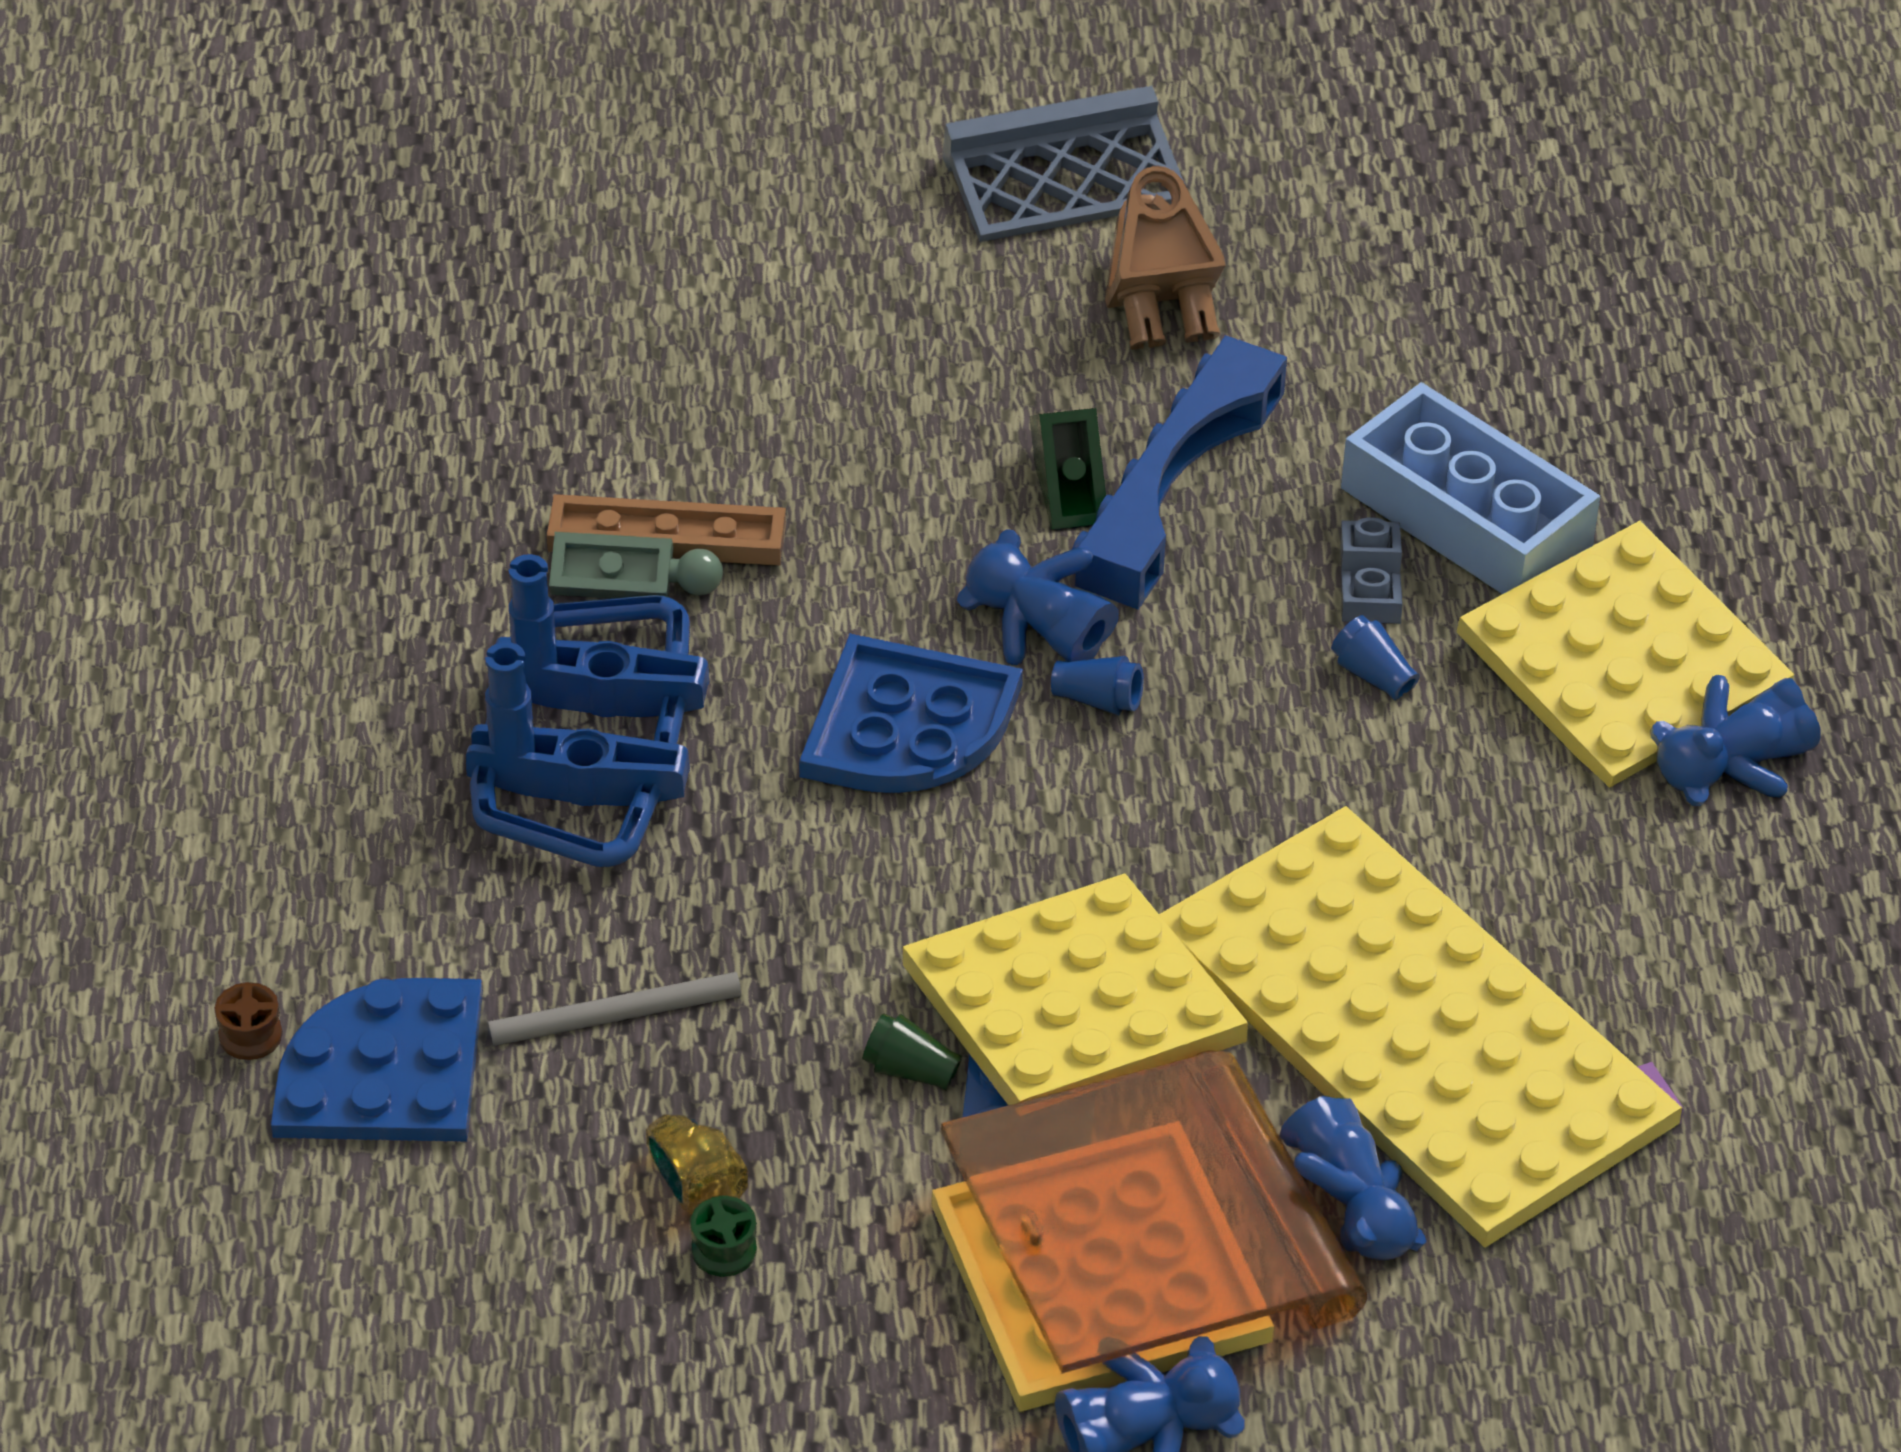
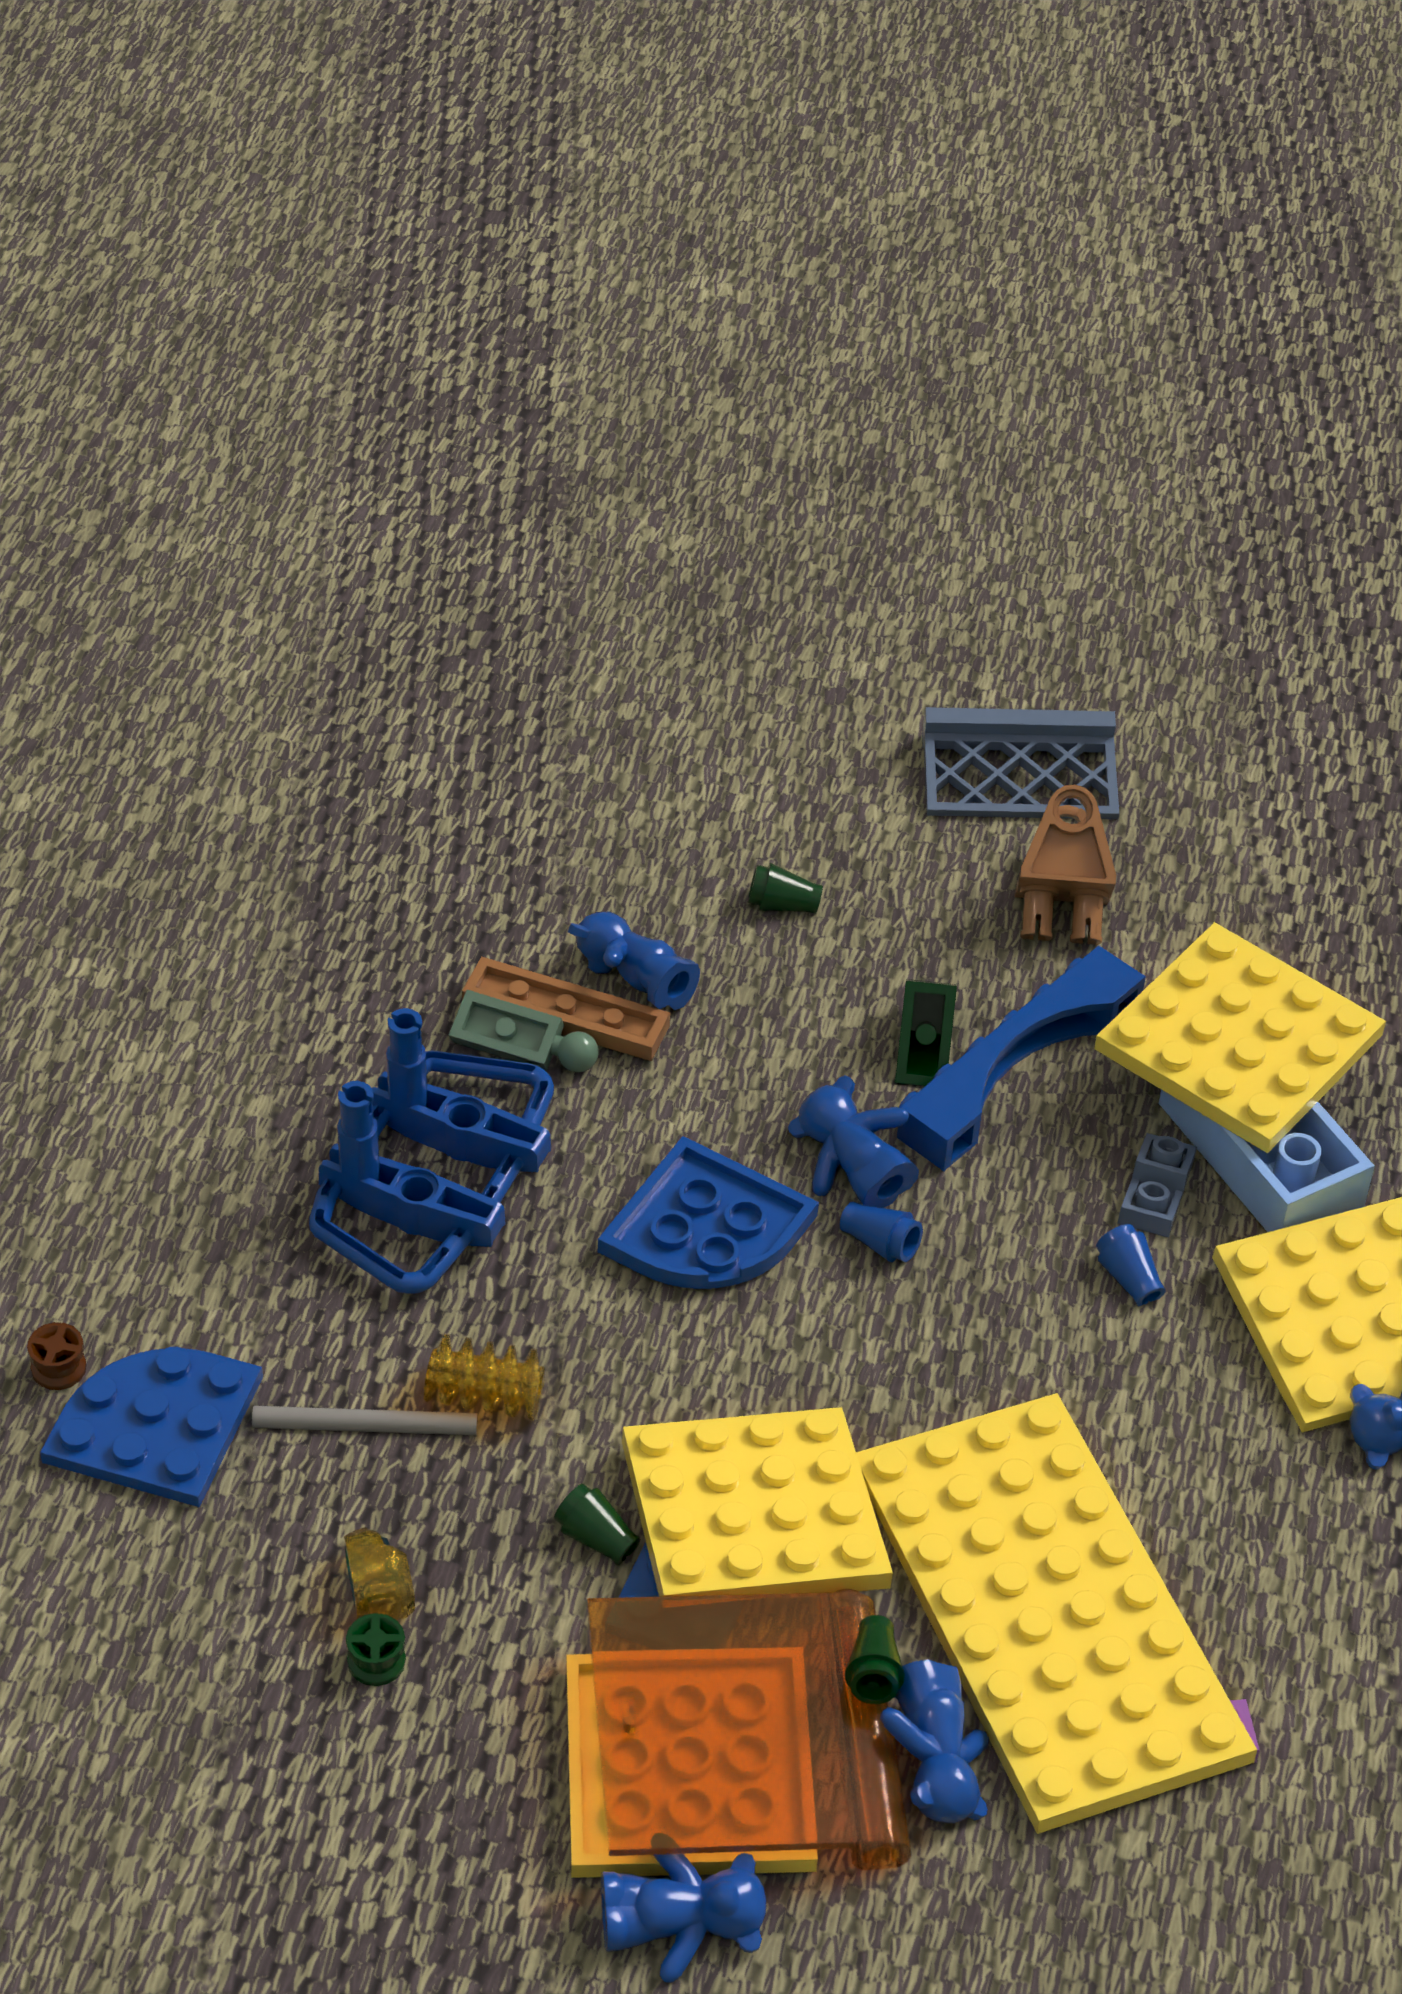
camera: 15 degrees right, 0 degrees up
(733, 929) = (485, 1377): none -> clear yellow piece
(735, 459) = (641, 961): none -> blue piece
(857, 354) = (783, 891): none -> dark green cone
(1269, 1114) = (875, 1663): none -> dark green cone
(1414, 394) = (1240, 1036): none -> light yellow plate

